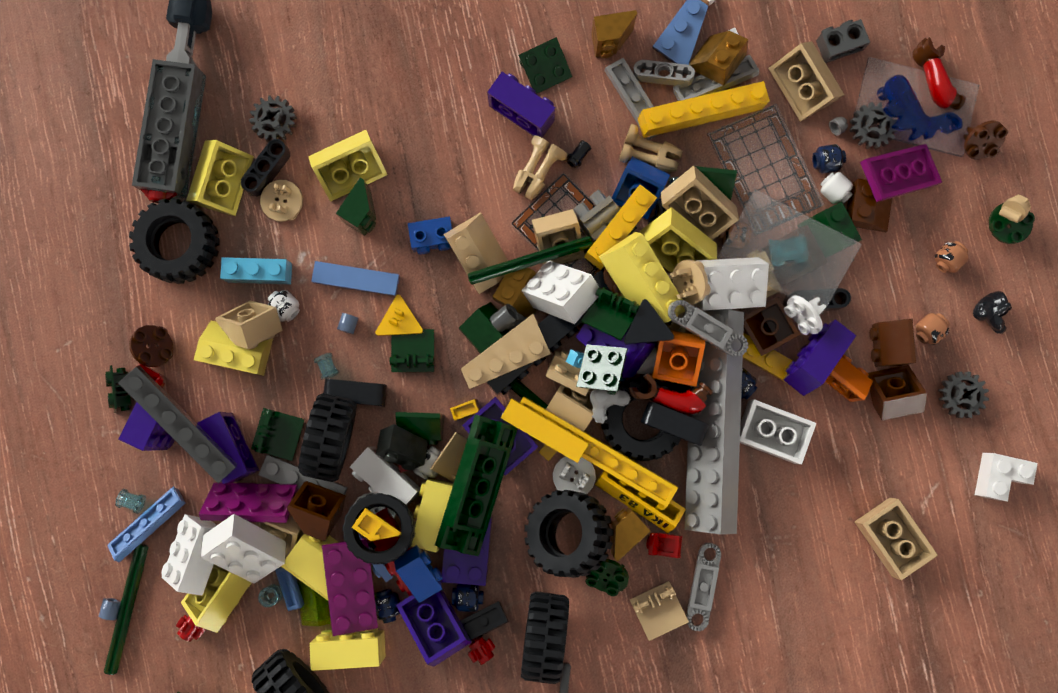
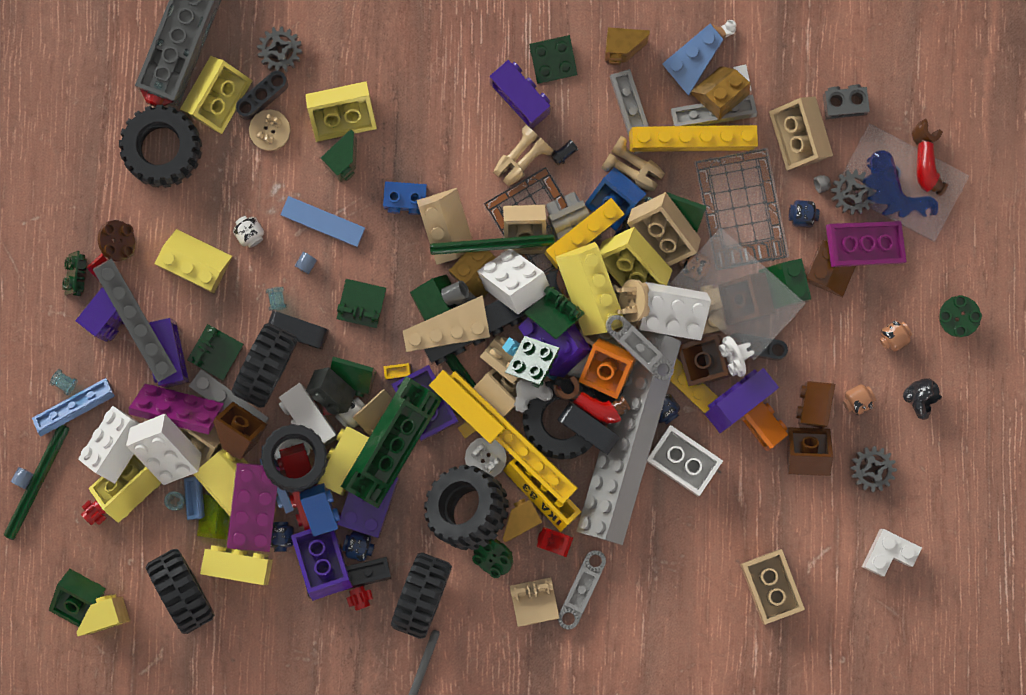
camera: 15 degrees right, 0 degrees up
(250, 324) = (215, 242): tan slope -> none
(256, 270) = (231, 192): medium azure brick -> none
(374, 527) = (291, 453): yellow tile -> none
(398, 320) = (354, 271): yellow piece -> none
(647, 326) = (583, 332): black piece -> none
(680, 70) = (681, 93): light grey beam -> none
(788, 250) = (735, 292): clear light blue piece -> none
(836, 188) = (802, 243): white head -> none
(984, 140) = (956, 231): reddish brown plate -> none
(1015, 208) = (962, 304): tan piece -> none

